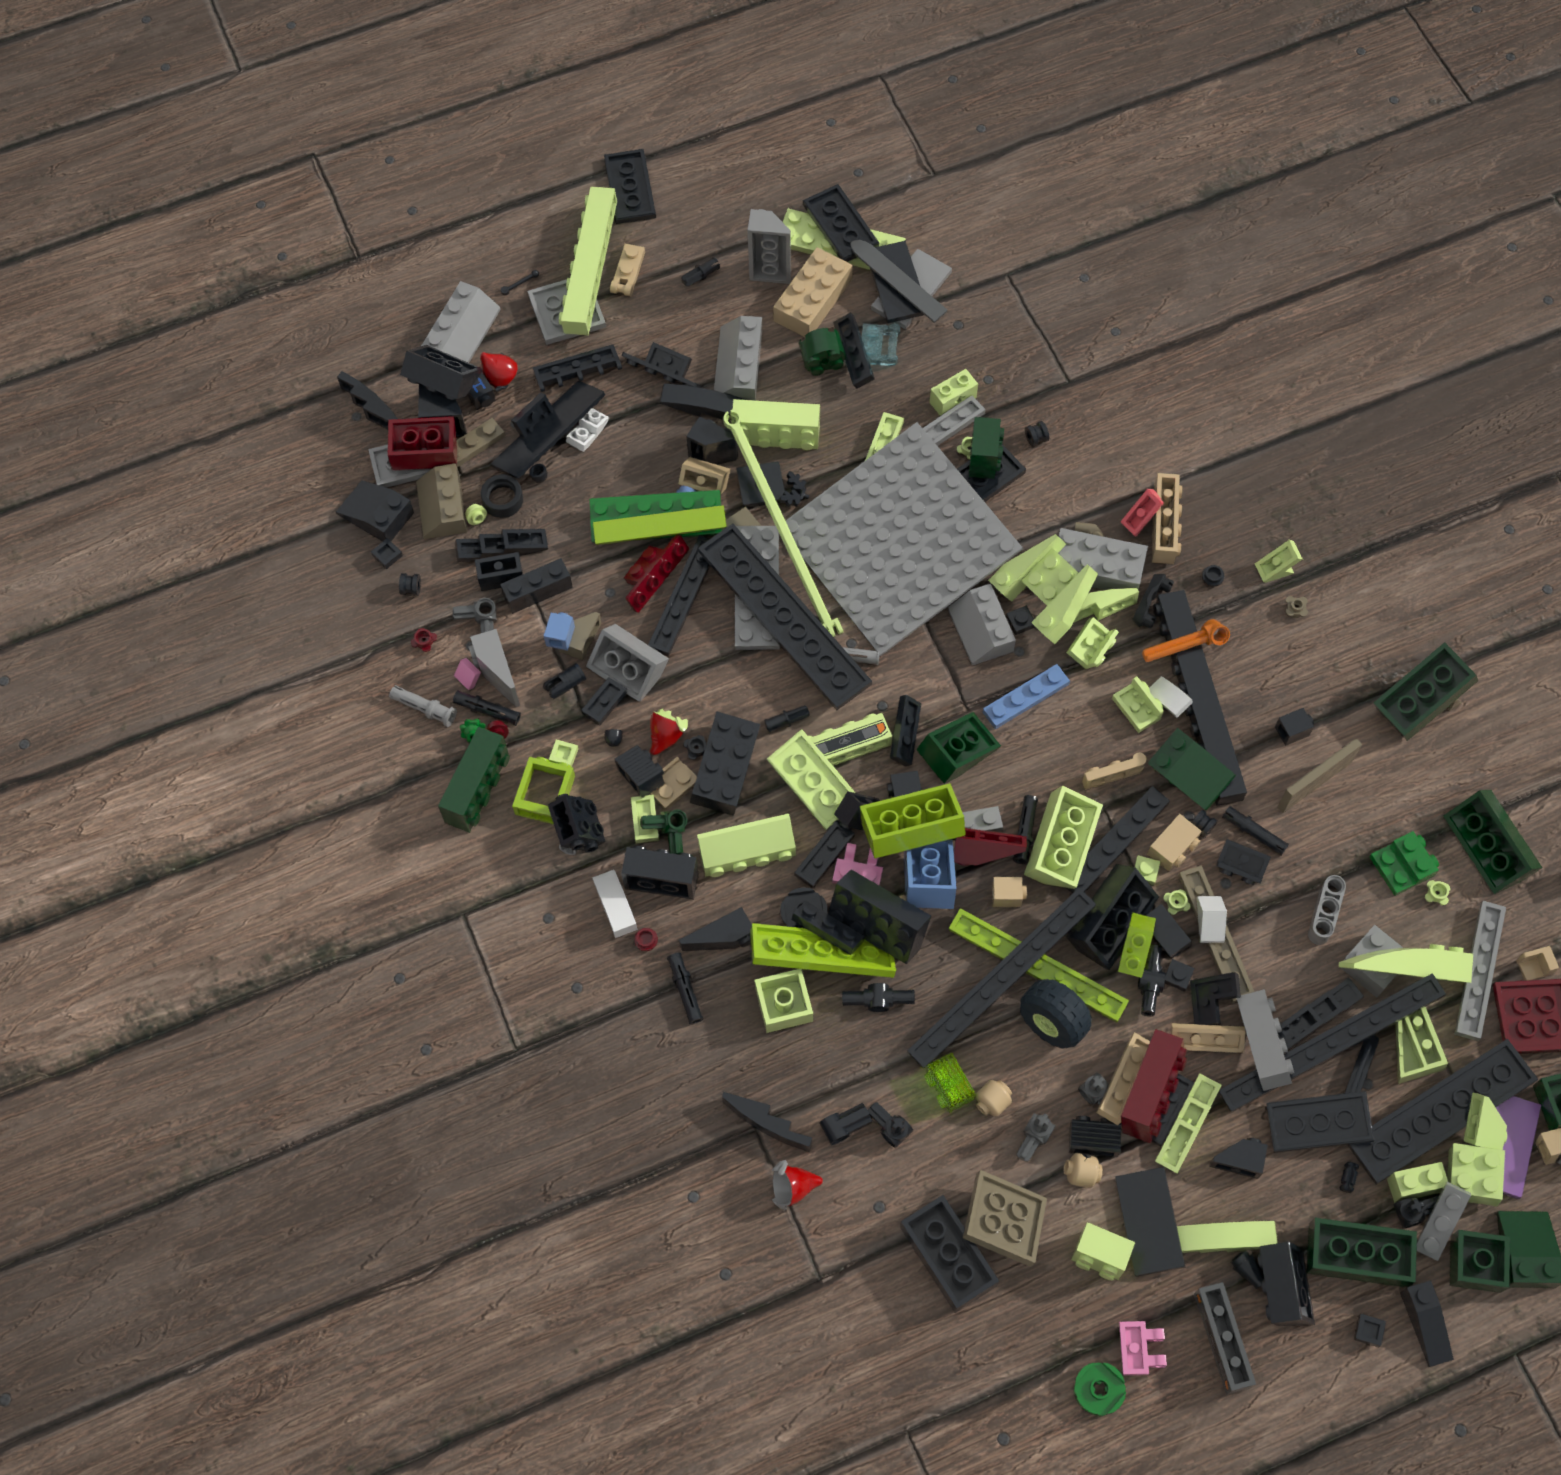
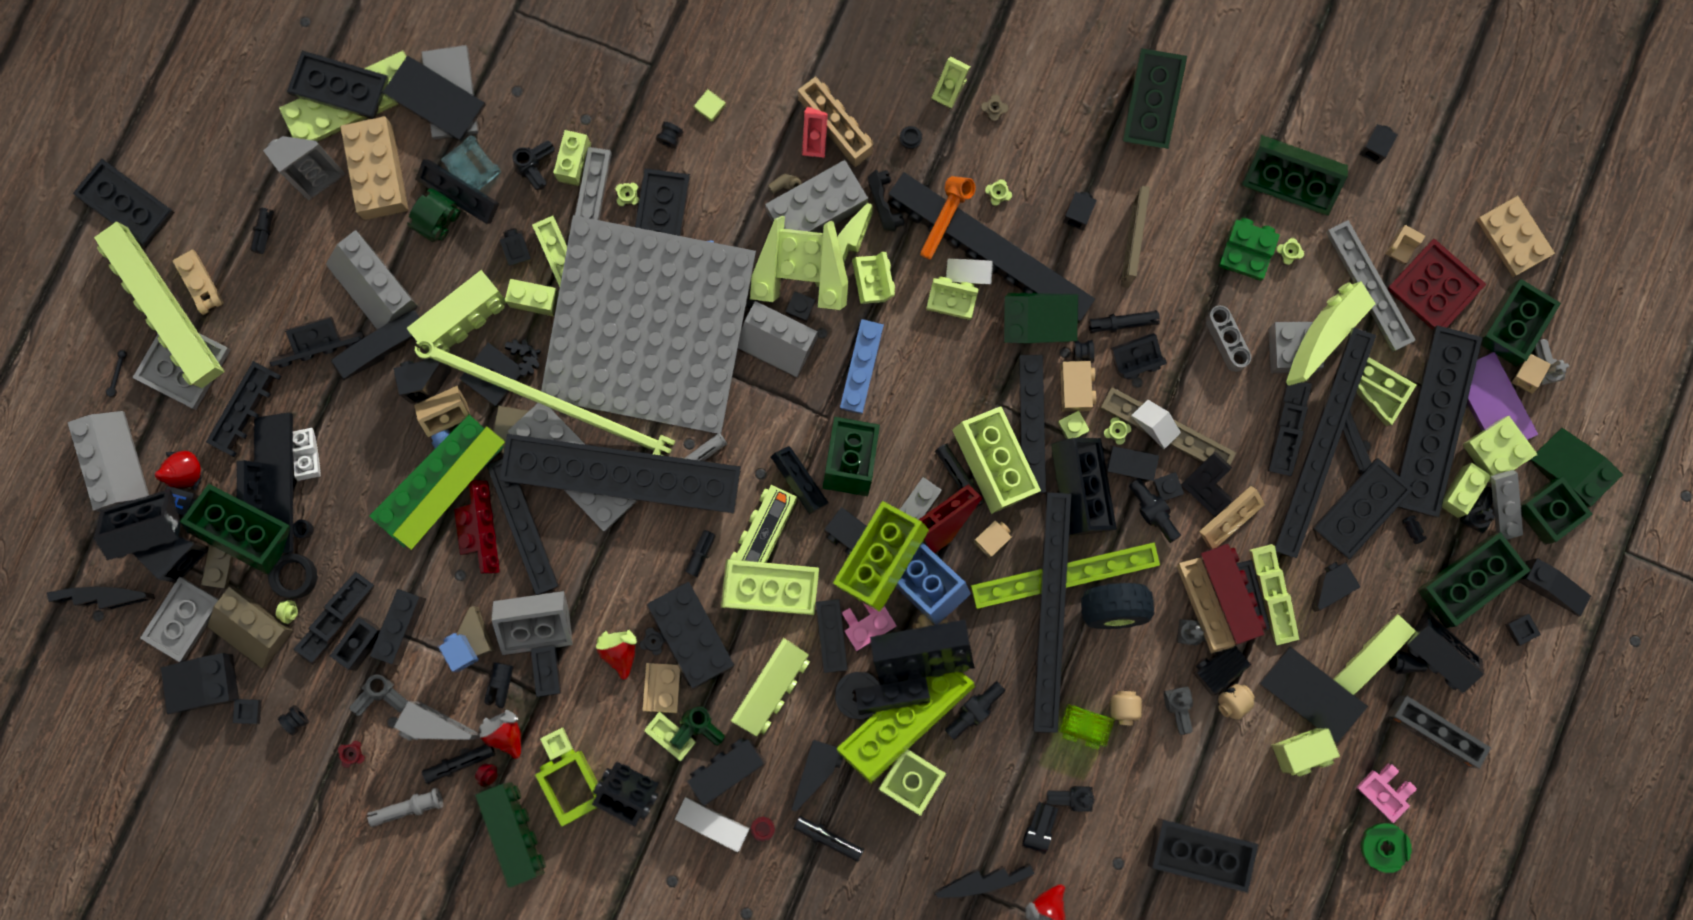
camera: 45 degrees left, 15 degrees up
(421, 443) = (182, 596): dark red slope -> none
(467, 673) = (415, 750): bright pink tile -> none
(469, 728) = (466, 792): green plant -> none
(497, 431) = (236, 528): none -> dark green slope
(535, 714) = (502, 733): none -> red hat
(613, 737) = (582, 694): black hinge -> none
(640, 771) = (630, 703): black brick -> none
(836, 455) = (532, 297): none -> yellowish green brick
(849, 810) = (823, 576): black slope -> none
(857, 416) = (514, 246): none -> black bracket
(898, 280) = (435, 97): dark grey piece -> none
(919, 371) = (530, 168): none -> black axle
(986, 448) = (645, 187): dark green brick -> none
(1005, 1218) = (1218, 792): dark tan plate -> none
(1085, 439) = (709, 105): none -> yellowish green tile
(1114, 771) = (982, 368): tan plate -> none
(1137, 945) = (1129, 499): lime window -> none
(1245, 659) = (998, 186): none -> yellowish green plate
(1264, 1040) = (1276, 485): light grey brick -> none
(1485, 1124) = (1477, 408): yellowish green slope -> none

